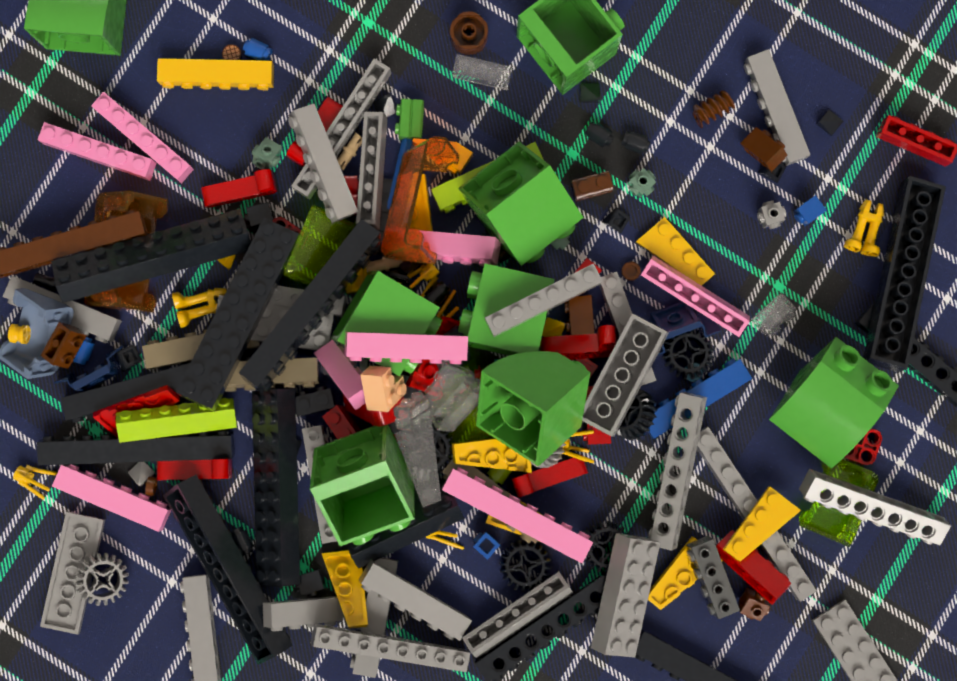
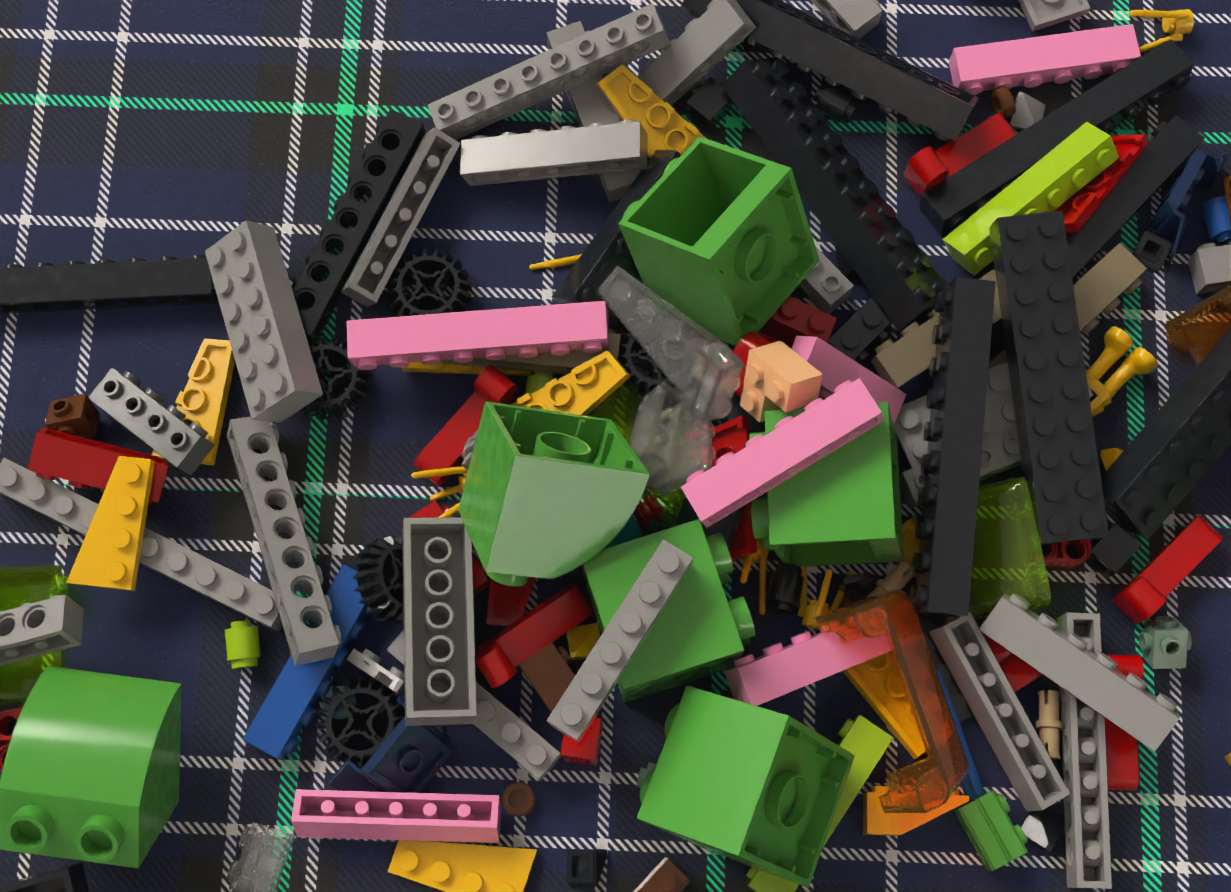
camera: 150 degrees right, 10 degrees down
(485, 544) = (500, 283): blue brick -> none
(668, 380) = (370, 662): none -> light grey wing
(727, 429) = (242, 645): none -> lime brick

